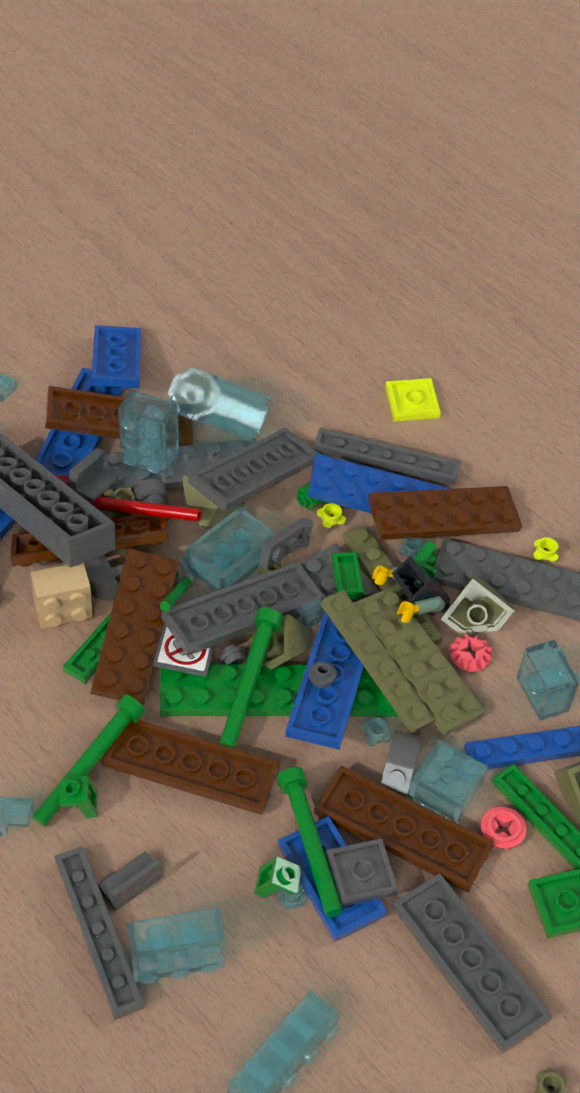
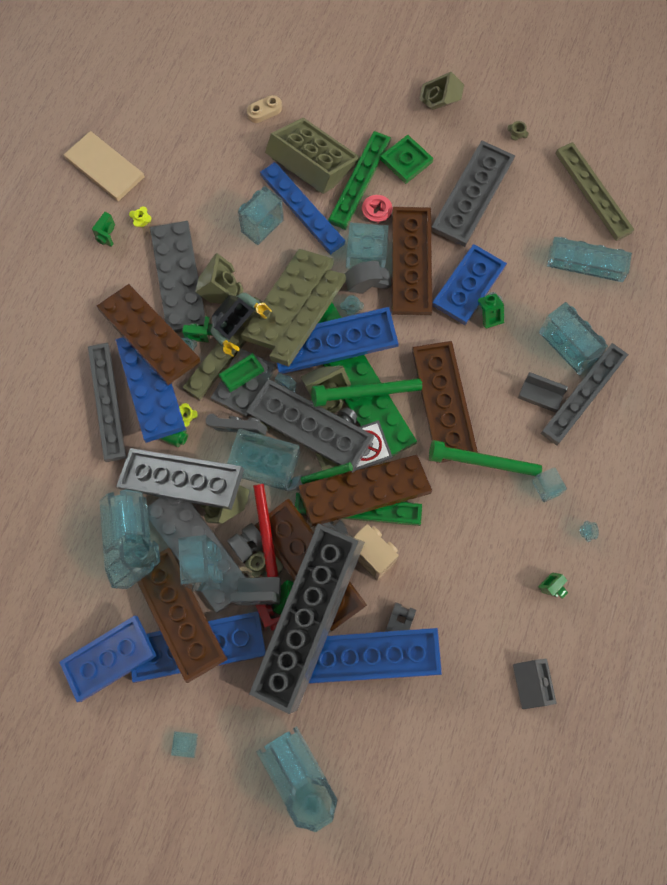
camera: 115 degrees left, 20 degrees up
(79, 793) = (514, 451): green bracket -> none
(293, 782) = (426, 328): green piece -> none
(318, 678) = (343, 346): dark grey plate -> none
(361, 872) = (460, 265): flat silver tile -> none
(412, 399) = (32, 411): neon yellow tile -> none
(464, 659) = (256, 284): coral gear -> none
(546, 549) = (136, 260): neon yellow plate -> none

